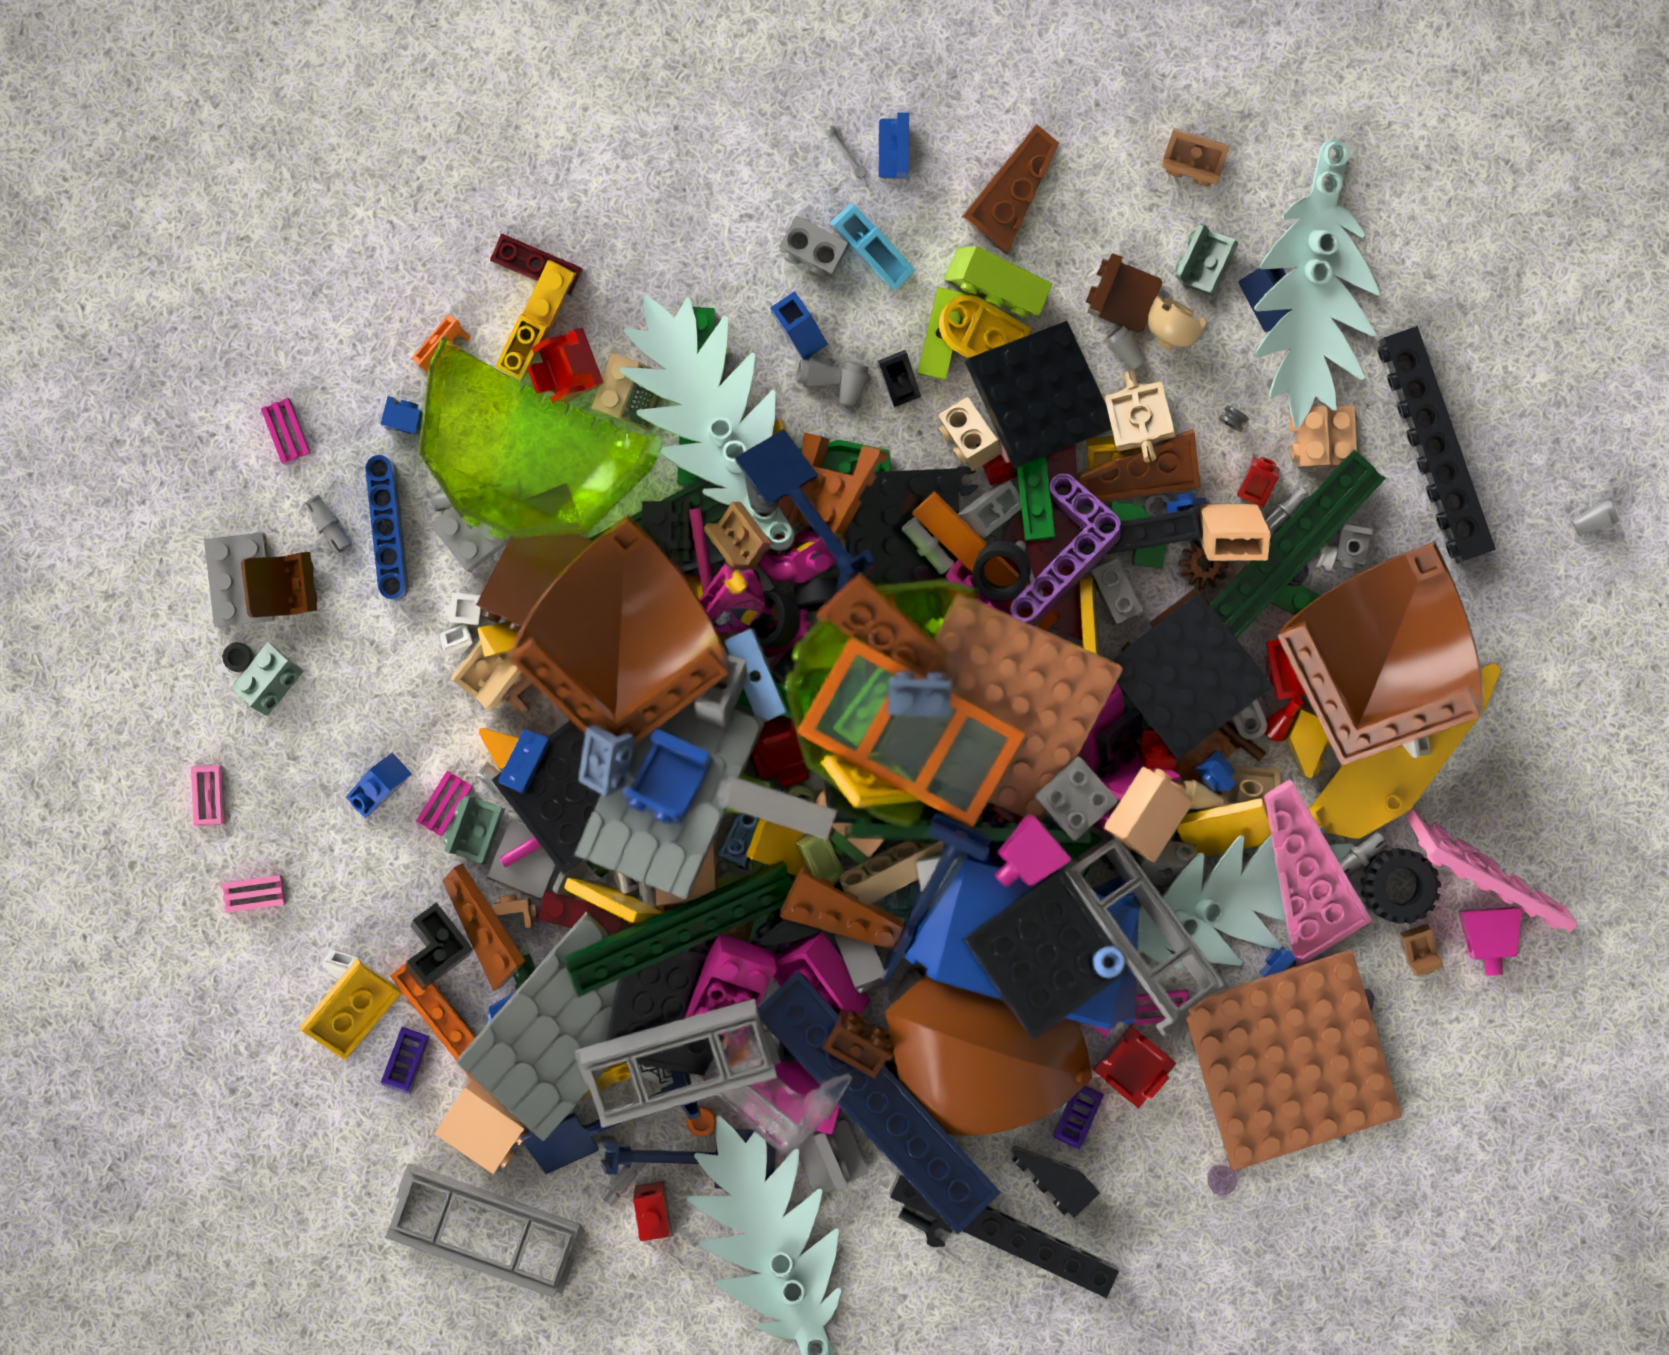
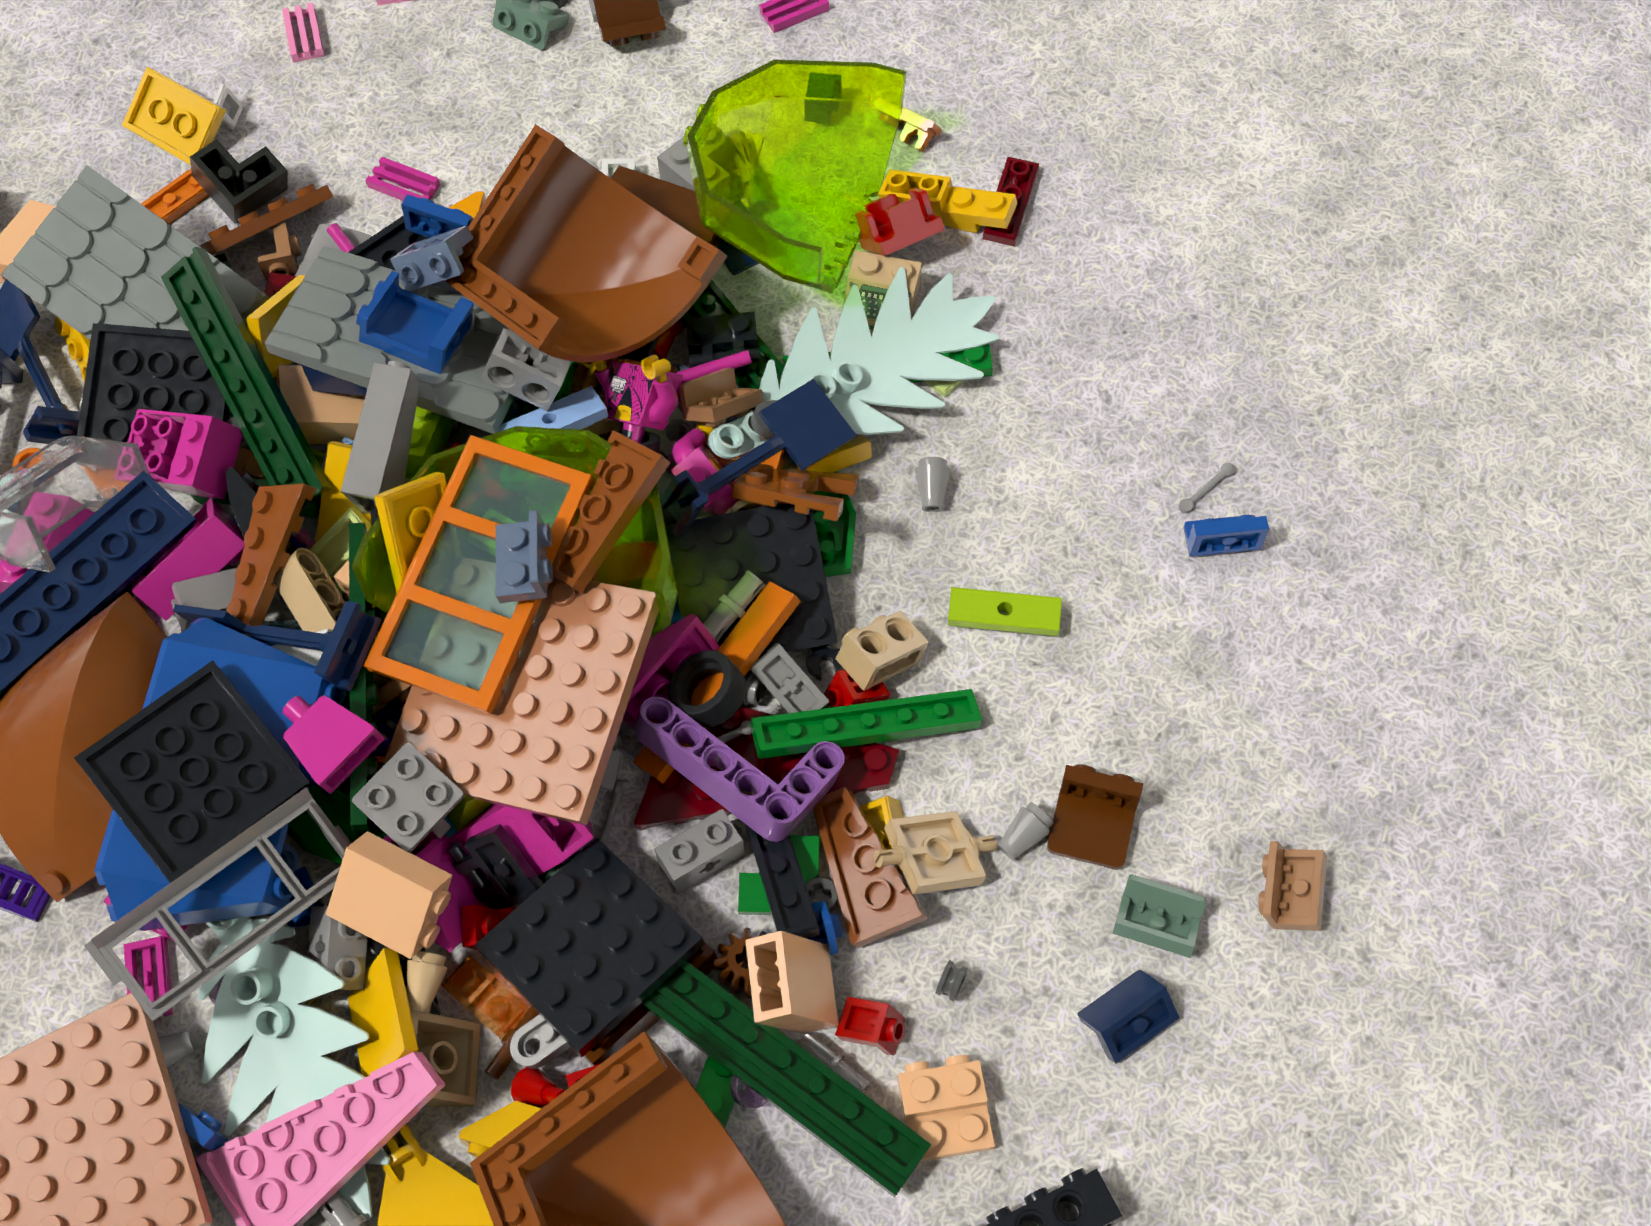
camera: 85 degrees right, 25 degrees down
(327, 524) = (698, 48): light grey pin -> none
(378, 515) = (674, 99): blue beam -> none
(378, 785) = (420, 117): blue slope -> none
(387, 1080) = (111, 165): dark purple slope -> none
(473, 829) = (370, 202): sand green bracket -> none
(672, 1035) = (134, 450): light grey piece -> none
(798, 325) = (987, 451): blue slope -> none
(817, 241) = (1086, 461): light grey brick -> none
(853, 381) = (927, 521): light grey cone -> none
(859, 1043) = (98, 581): reddish brown bracket -> none
(872, 246) = (1097, 523): medium azure slope -> none
(898, 378) = (942, 567): black slope -> none
(981, 327) = (1011, 656): yellow tile -> none
(998, 281) = (1079, 664): lime wedge -> none
(1007, 196) = (1194, 669): dark orange wing -> none
(1040, 394) = (944, 724): black plate -> none
(1089, 615) = (649, 815): yellow tile -> none
(1117, 958) = (173, 837): light blue plate -> none
(1135, 1067) = (56, 953): red panel -> none
(1174, 324) = (1066, 884): tan cylinder -> none
(1216, 772) = (460, 1001): blue bracket -> none
(1314, 293) = (1144, 1066): light aqua plant -> none
(1326, 557) = (777, 1129): white bush -> none
(1345, 536) = (804, 1178): light grey brick -> none

